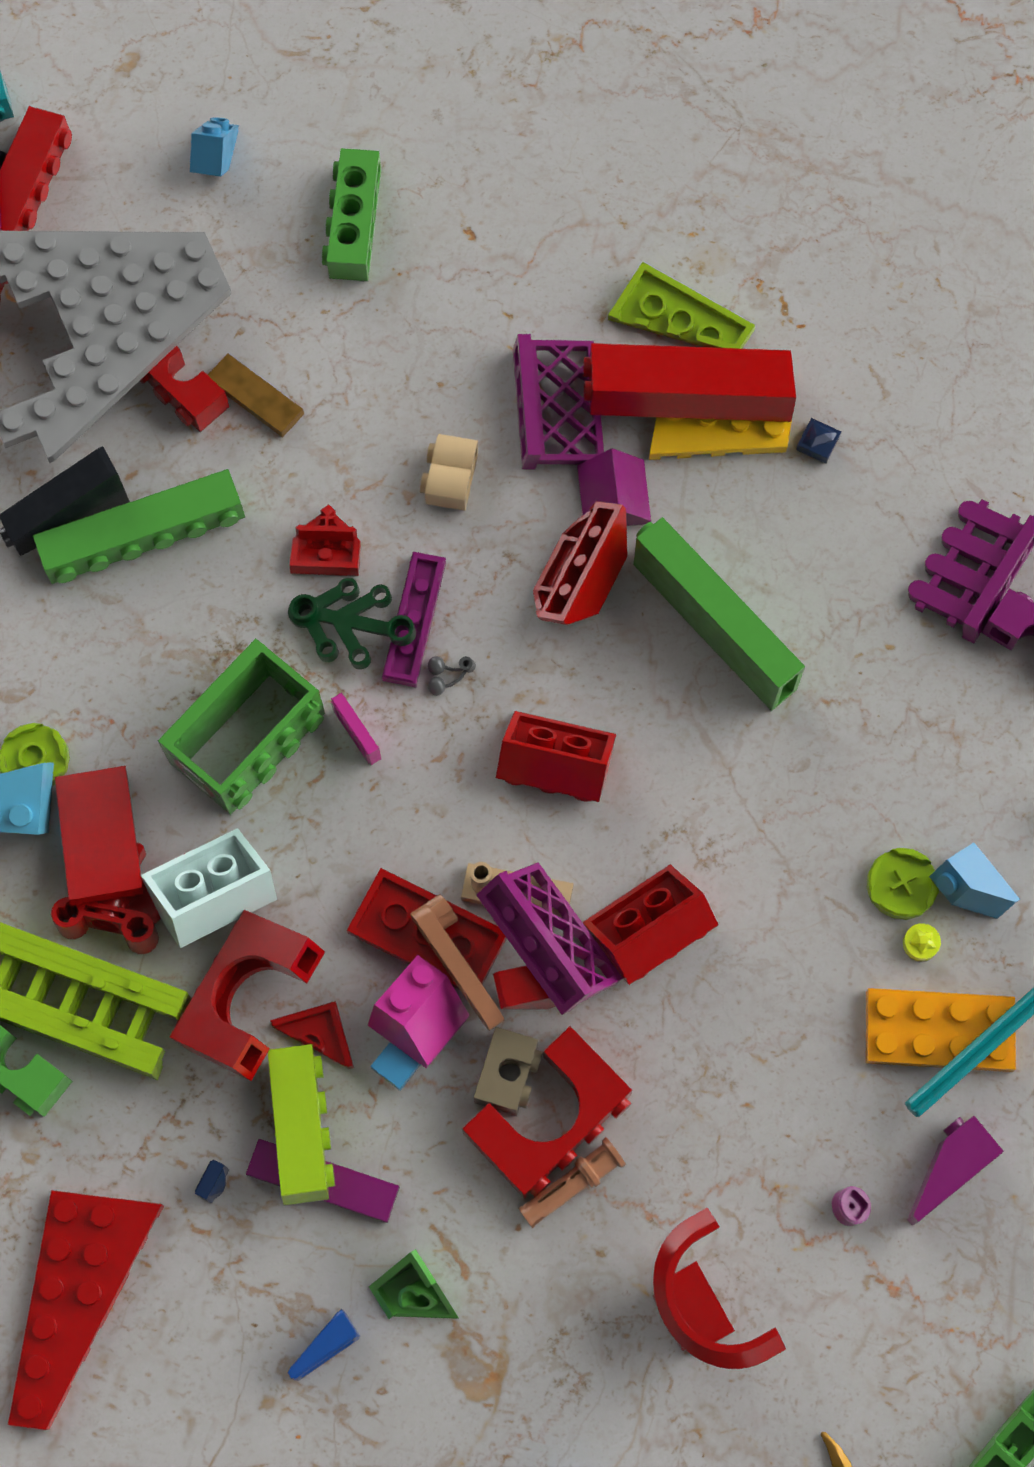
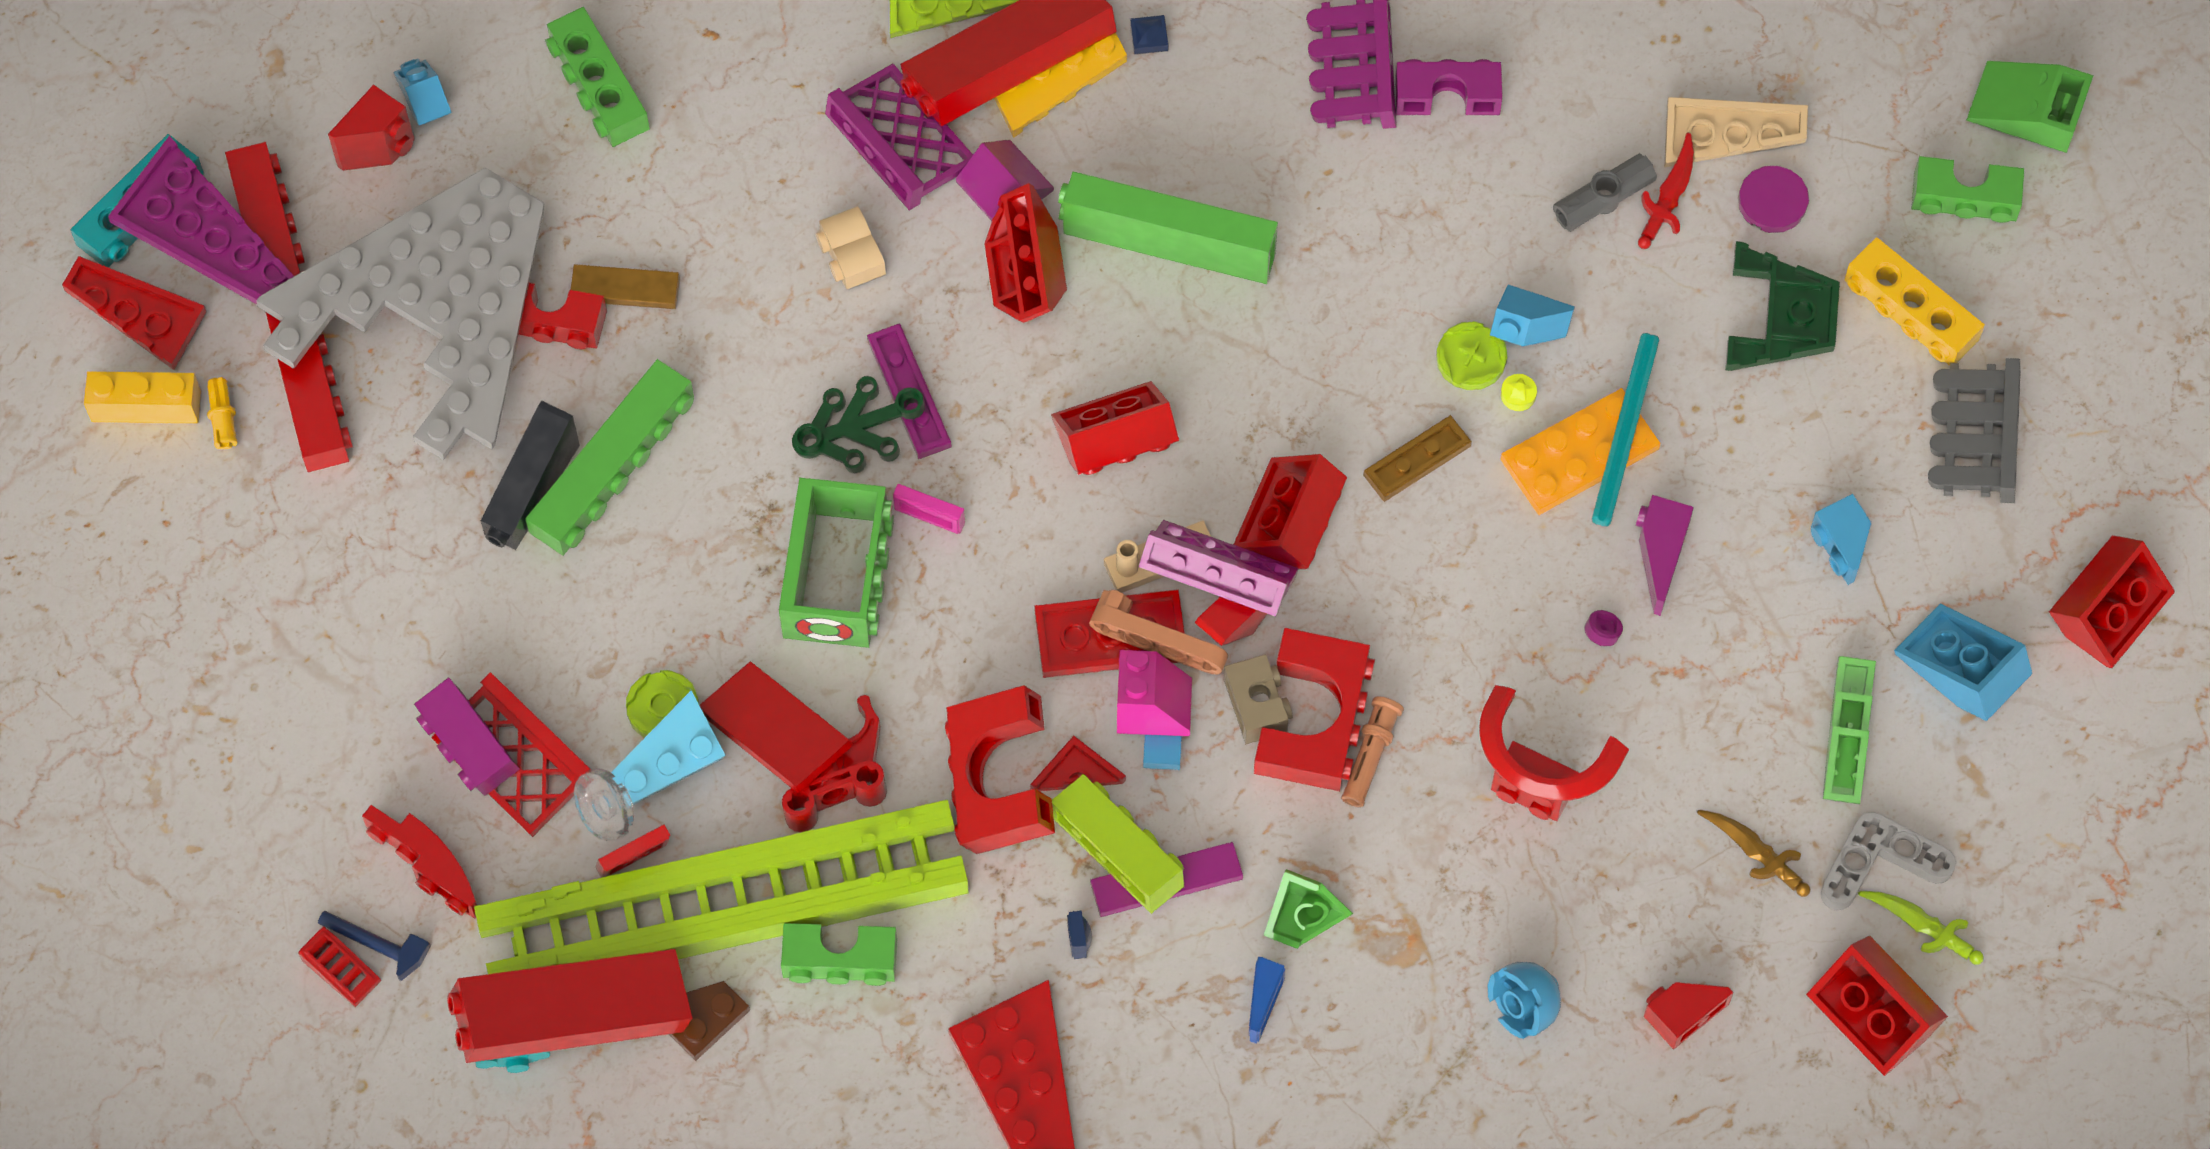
camera: 35 degrees left, 5 degrees down
(145, 154) = (372, 132): none -> red slope
(209, 887) = (903, 707): light aqua slope -> none
(325, 547) = (787, 377): red slope -> none
(436, 666) = (958, 418): dark grey piece -> none
(794, 944) = (1417, 458): none -> pearl gold tile

